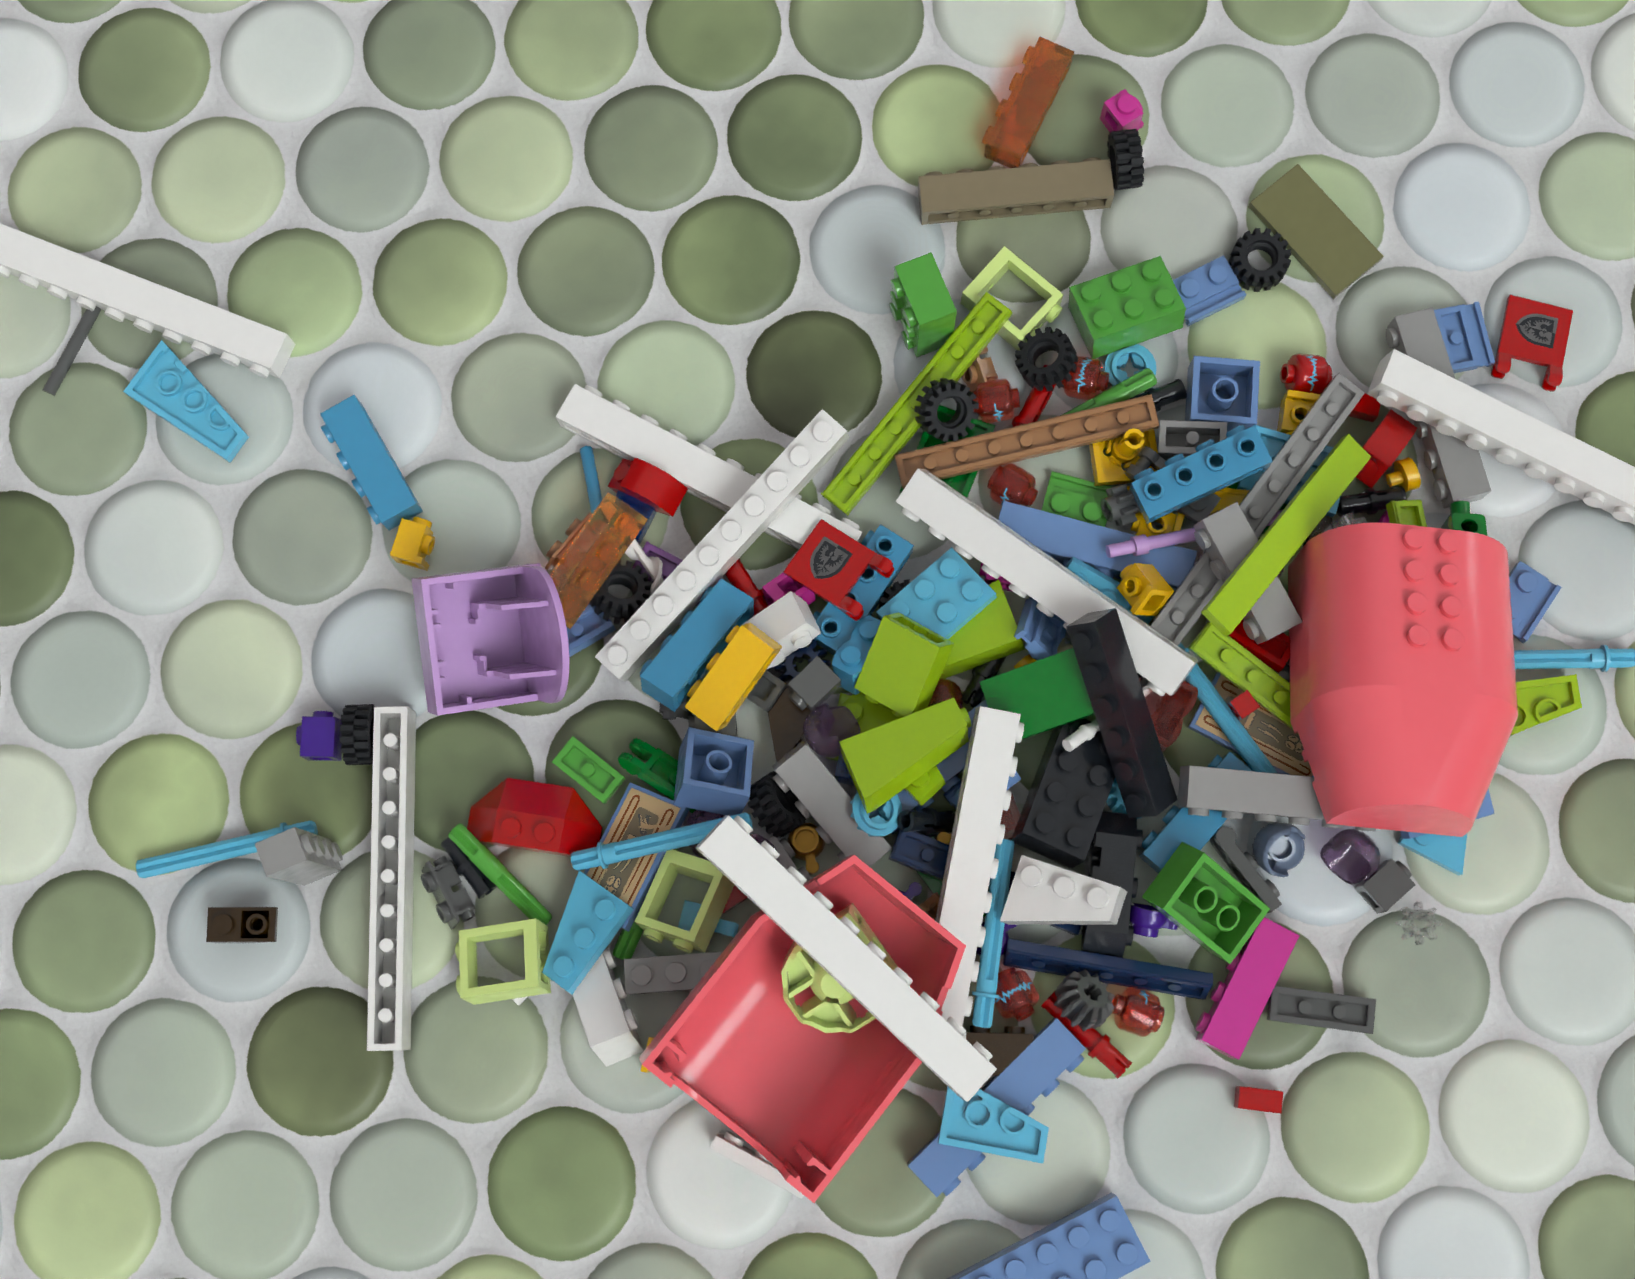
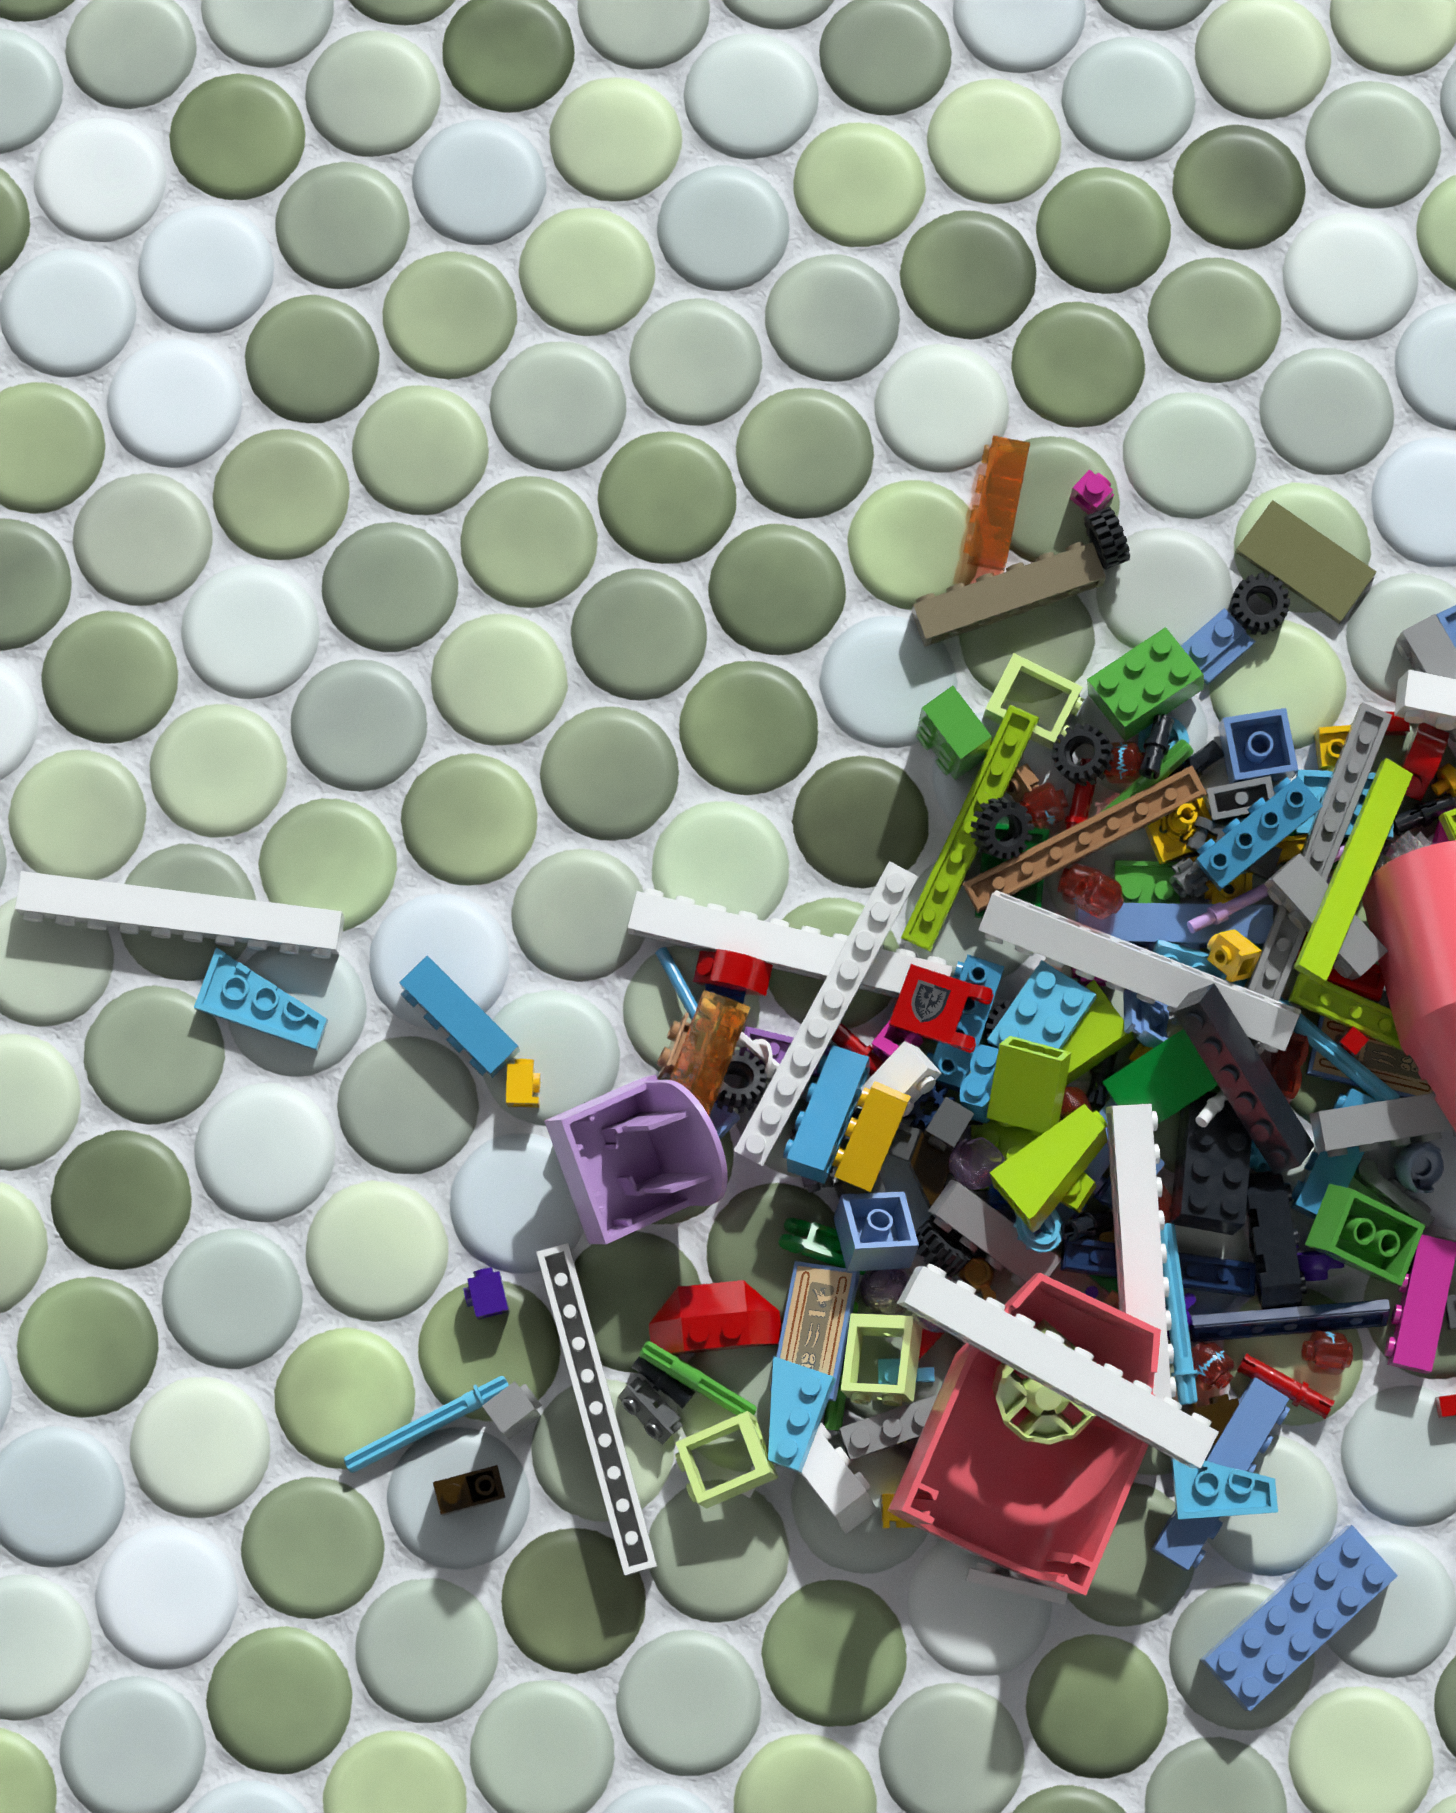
camera: 20 degrees left, 0 degrees up
(71, 351) = (124, 980): dark grey bar -> none
(357, 734) = (527, 1281): black tyre -> none
(588, 770) = (752, 1259): bright green plate -> none
(645, 845) = (838, 1312): medium azure axle -> none
(1024, 496) = (1098, 895): none -> clear red head
(1060, 896) = (1230, 1263): white wedge -> none
(1084, 1000) = (1276, 1354): dark grey gear -> none
(1121, 368) = (1156, 746): none -> black pin
(1306, 373) = (1332, 706): red head -> none

